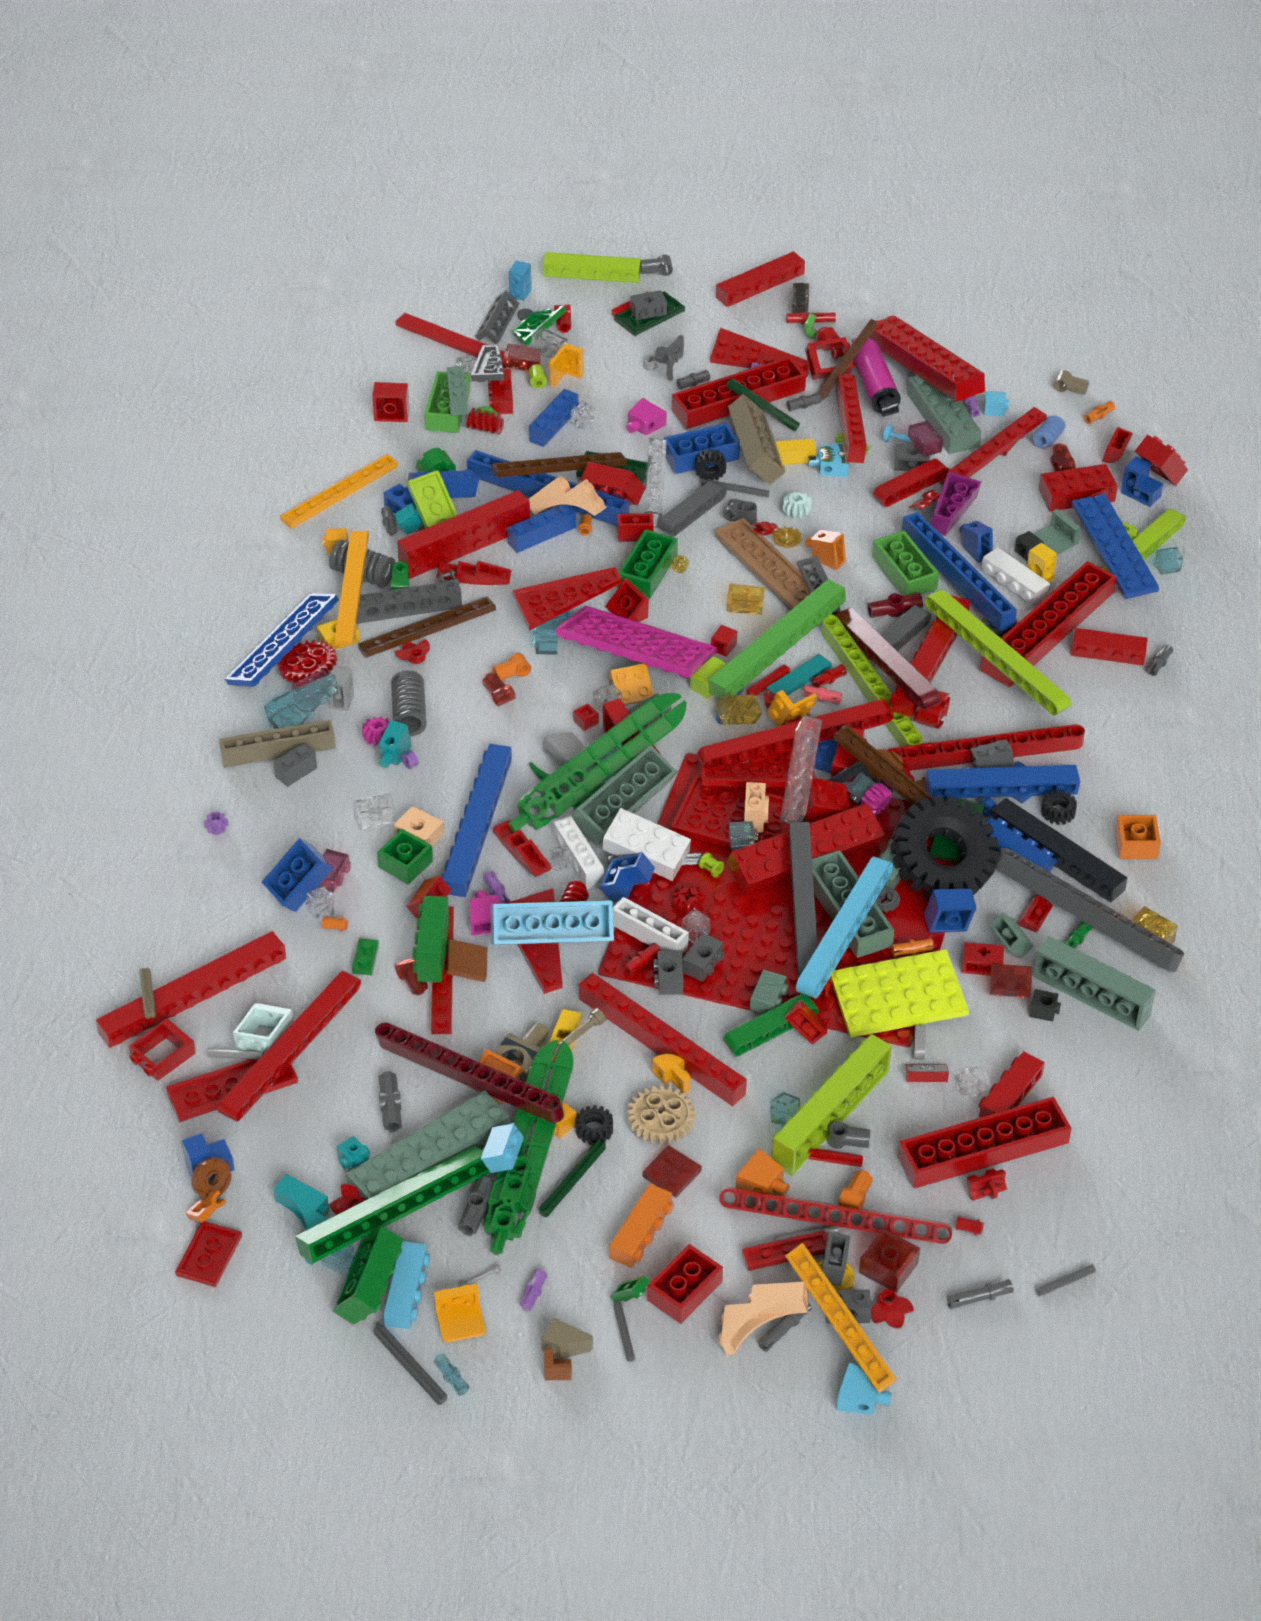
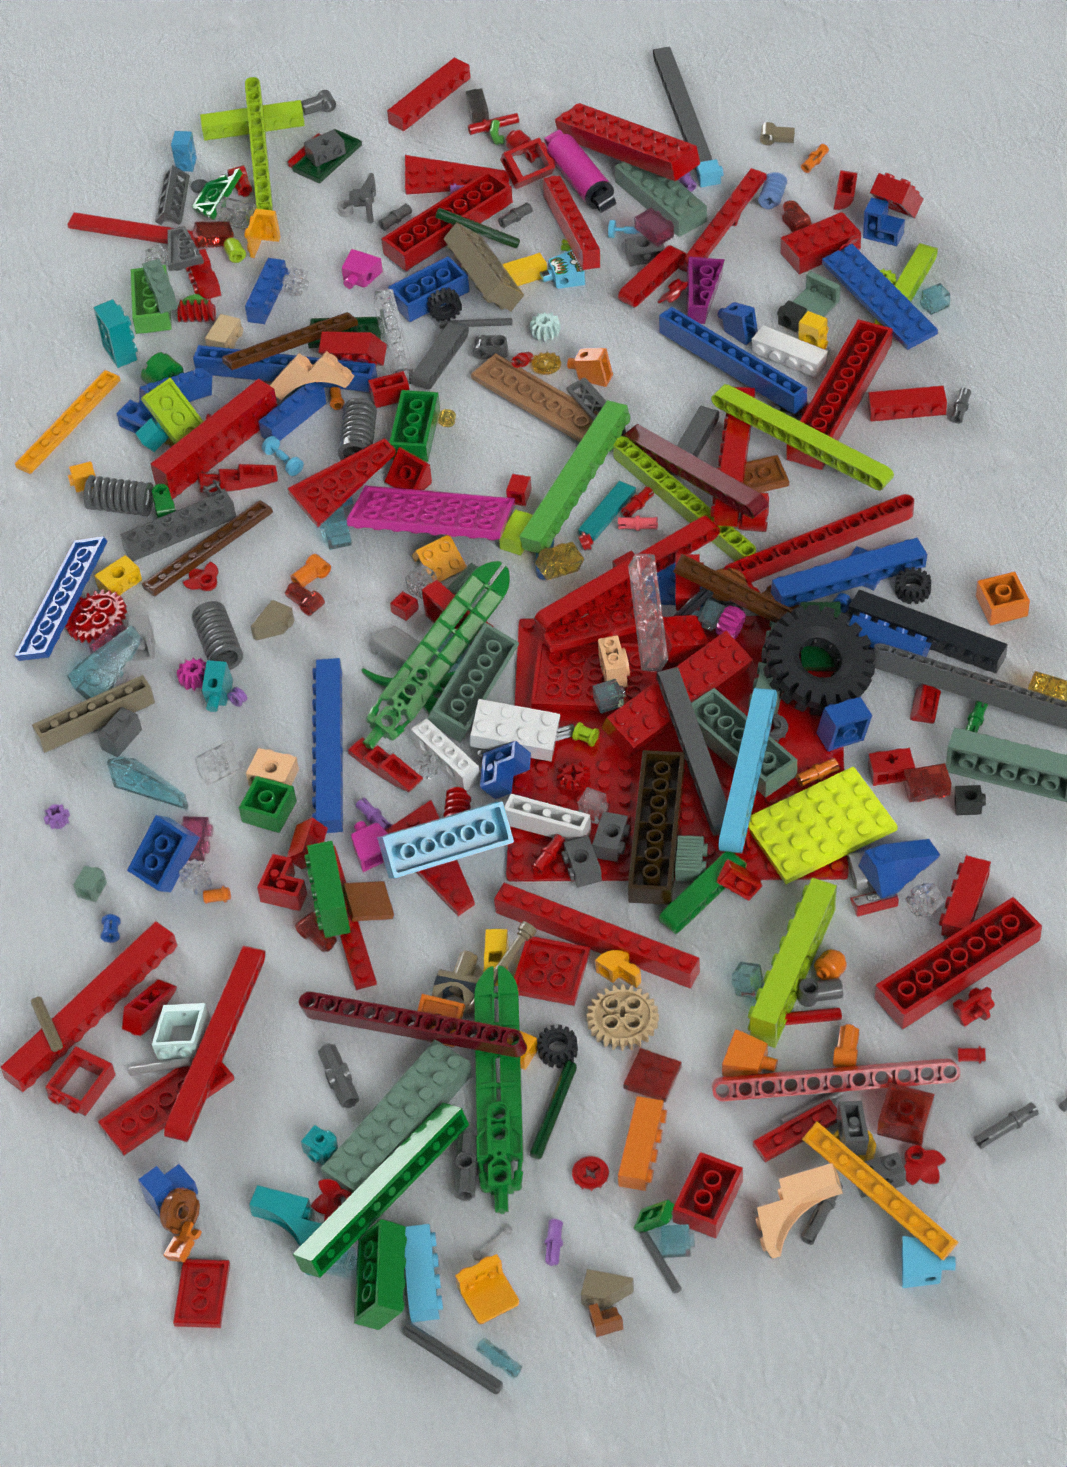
camera: 10 degrees left, 5 degrees up
(226, 886) = (90, 883): none -> sand green brick
(231, 928) = (115, 936): none -> blue bush
(235, 1004) = (146, 1008): none -> red slope
(299, 809) = (139, 779): none -> clear light blue wedge
(351, 588) = (118, 526): light orange tile -> none
(365, 956) = (260, 923): green plate -> none
(389, 520) = (130, 441): dark grey axle -> none
(390, 402) = (84, 313): red brick -> none
(393, 927) = (280, 886): none -> red brick
(404, 423) = (116, 333): none -> teal brick
(463, 702) = (272, 621): none -> dark tan slope
(502, 1148) = (475, 1098): medium azure brick -> none
(504, 445) = (224, 332): none -> tan brick
(527, 573) = (293, 466): none -> medium azure wheel
(588, 289) = (258, 144): none -> lime beam
(592, 1233) = (592, 1164): none -> red gear
(595, 551) = (357, 427): none -> dark grey piece
(611, 1059) = (551, 970): none -> red plate
(643, 1316) = (676, 1241): none -> clear light blue brick
(745, 599) = (526, 440): clear yellow brick -> none
(746, 958) = (656, 828): none -> dark brown brick
(761, 685) = (576, 522): red axle -> none
(783, 708) = (606, 550): light orange bracket -> none
(847, 358) = (547, 159): reddish brown axle -> none
(866, 1116) = (830, 964): none -> orange head
(894, 605) = (679, 410): dark red piece -> none
(905, 564) = (676, 365): bright green brick -> none
(955, 679) = (765, 474): none -> dark orange tile
(956, 1043) = (896, 864): none -> blue wedge
(990, 337) = (680, 101): none -> dark grey beam
(992, 755) = (831, 548): dark grey brick -> none
(1011, 935) = (912, 734): sand green brick -> none

